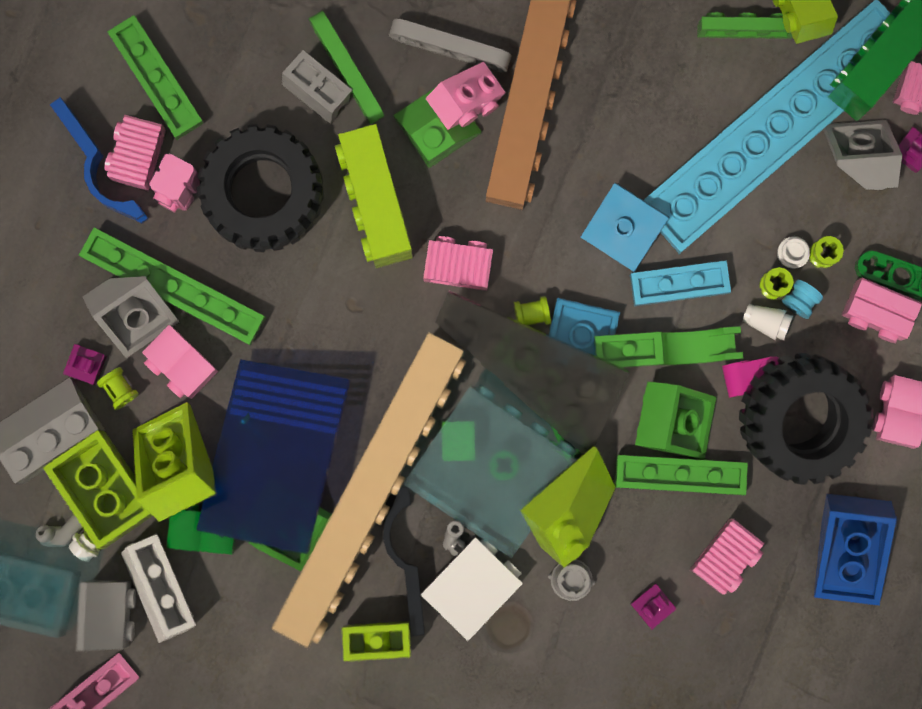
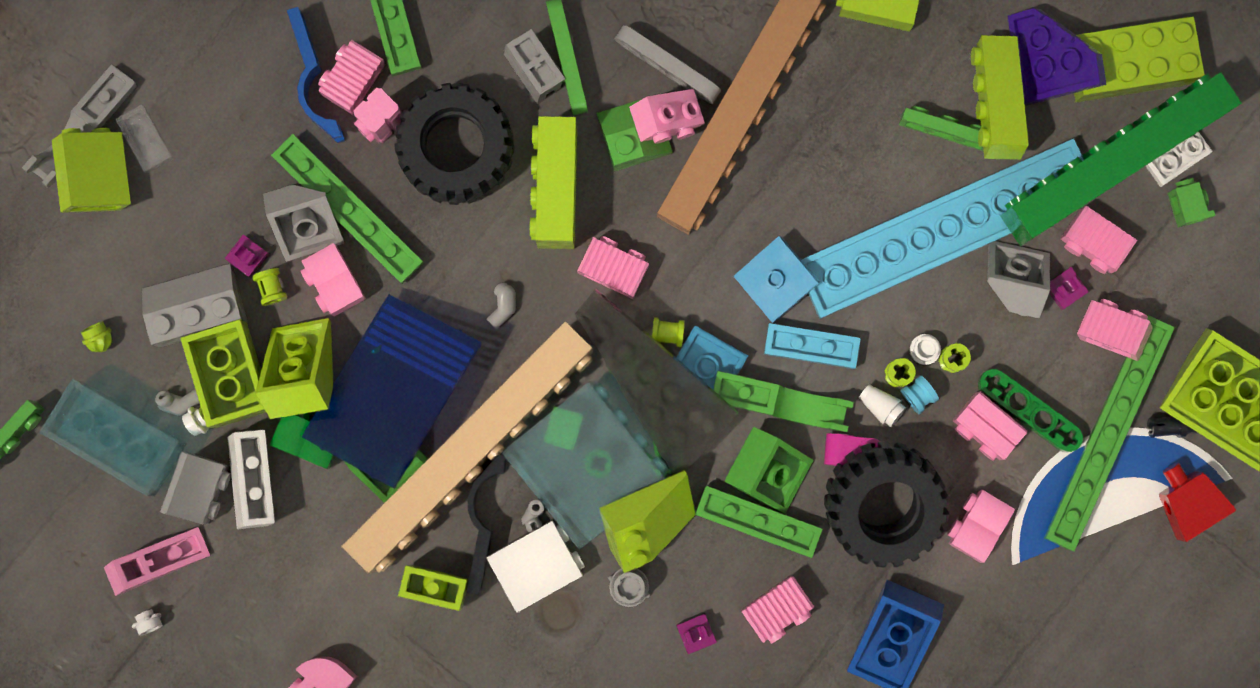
camera: 20 degrees right, 0 degrees up
(361, 333) = (506, 305): none -> light grey arm

